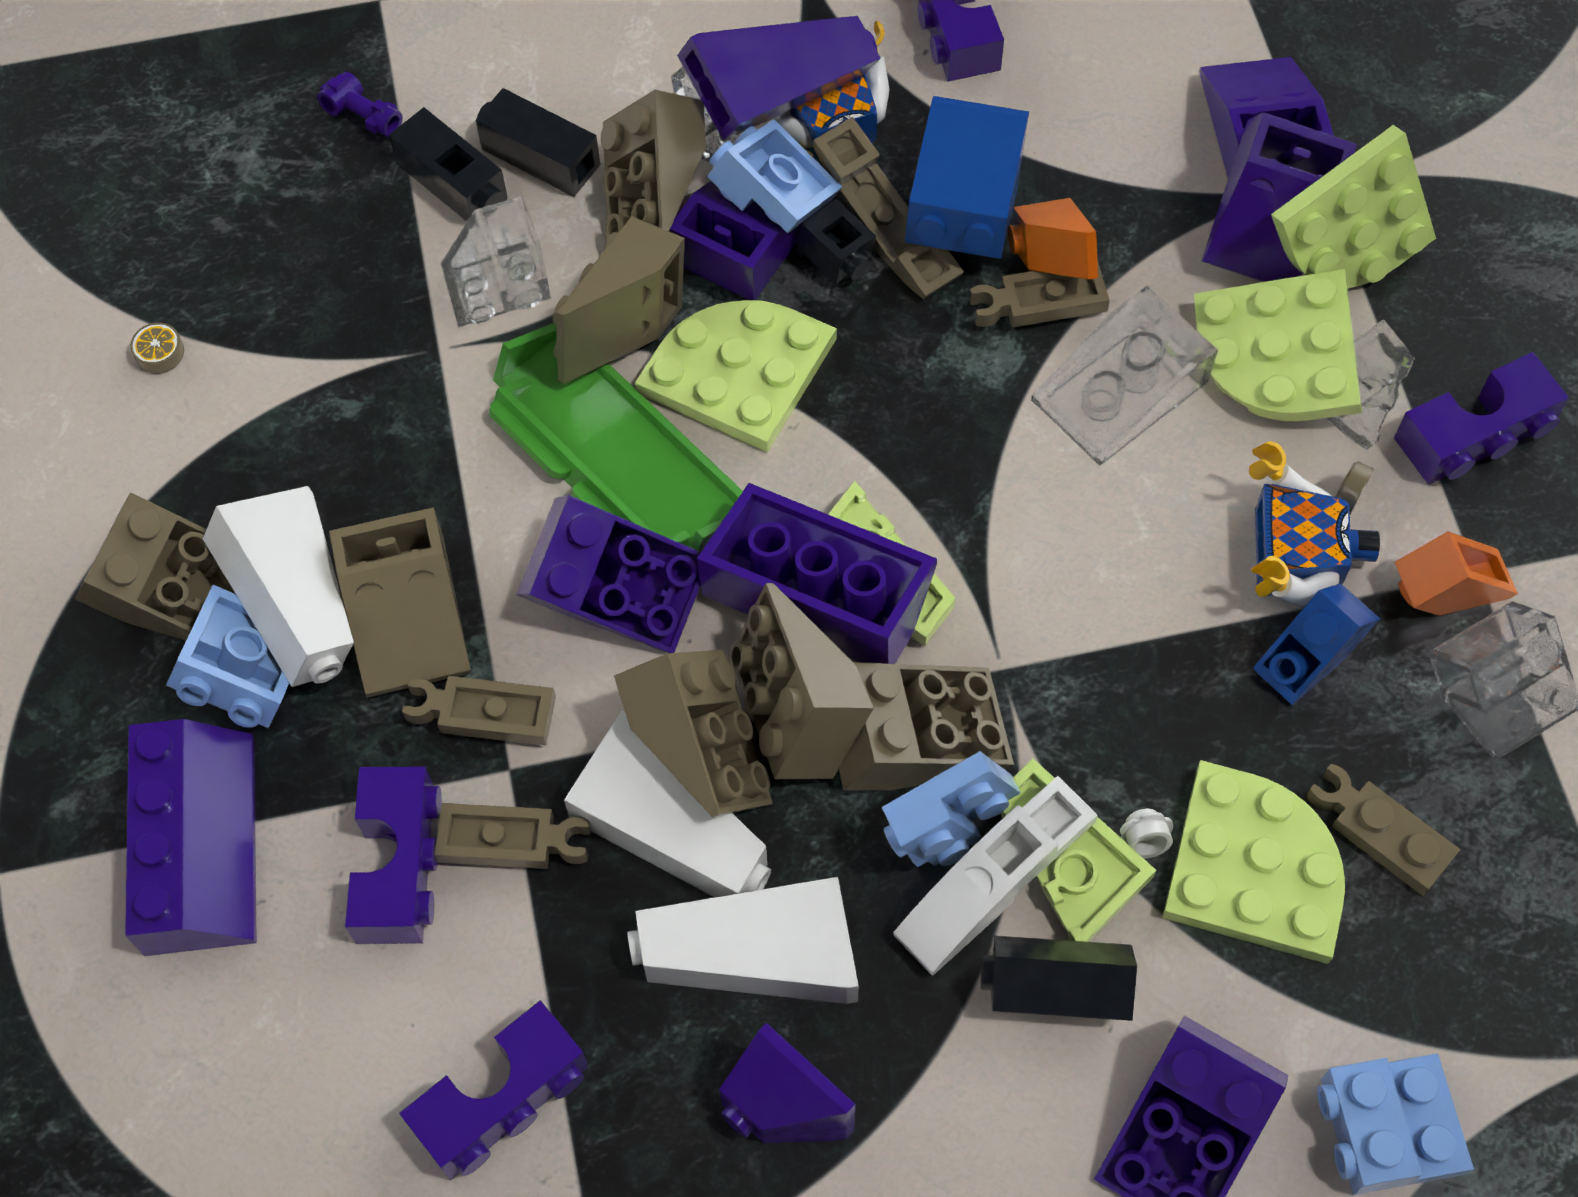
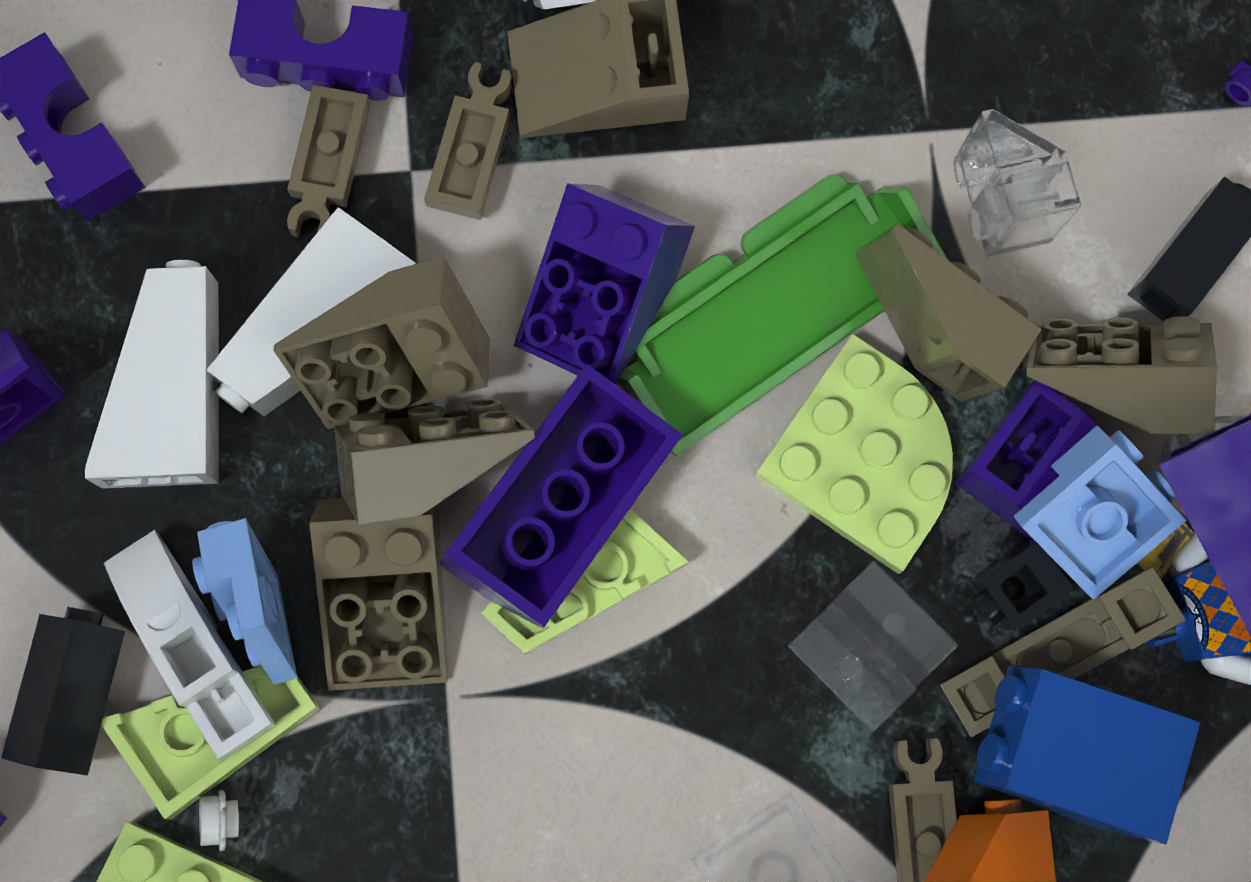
camera: 90 degrees right, 15 degrees up
(447, 164) = (1169, 149): black brick -> none
(899, 347) = (873, 645): none -> clear slope

